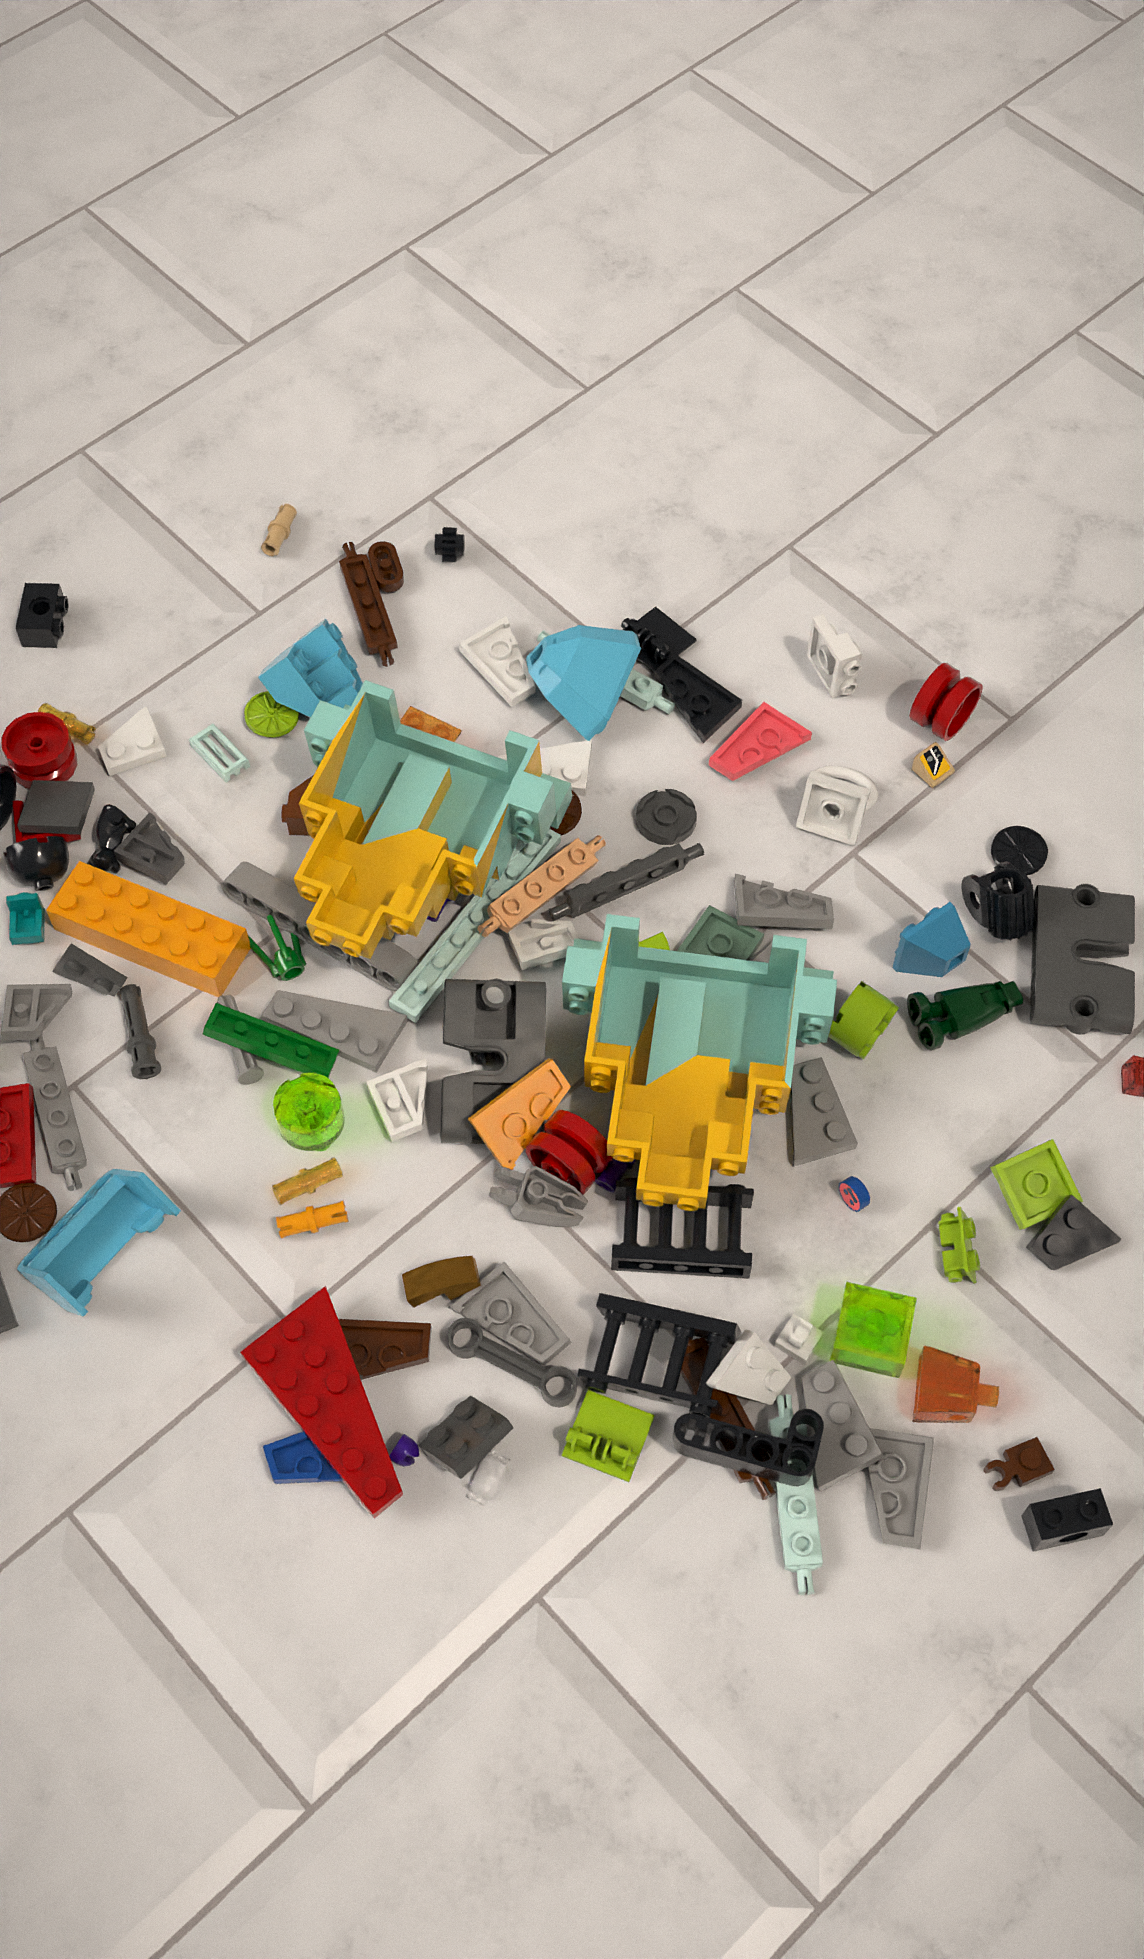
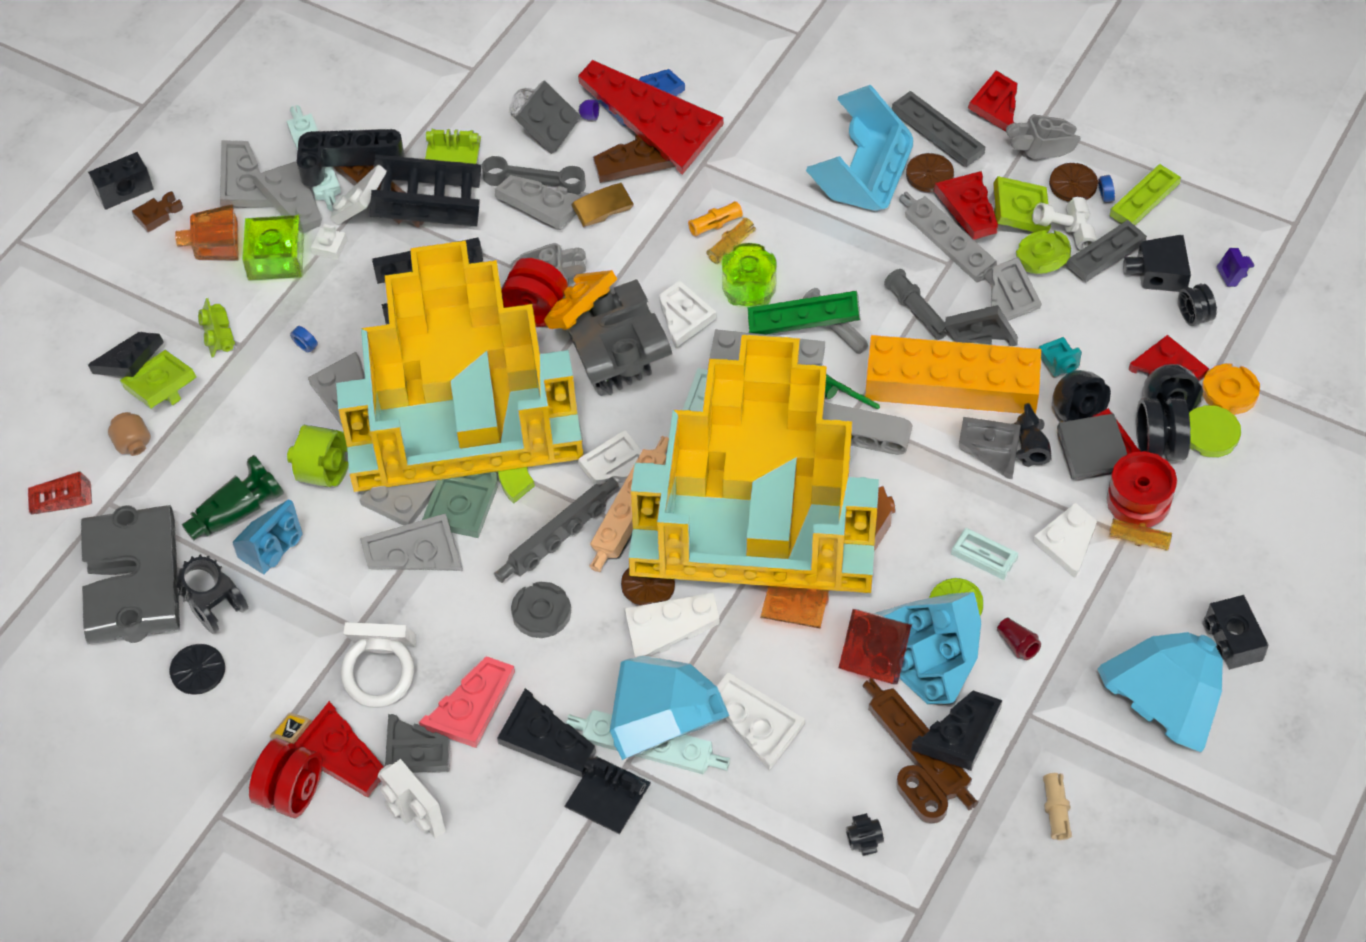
camera: 165 degrees right, 5 degrees down
(129, 576) = (1173, 681): none -> medium azure brick
(233, 662) = (1021, 640): none -> dark red cone
(327, 593) = (961, 733): none -> black wing
(367, 664) = (875, 646): none -> clear red plate
(821, 715) = (416, 747): none -> dark grey wing
(889, 731) = (341, 751): none -> red wing
(1075, 1124) = (129, 434): none -> medium nougat head

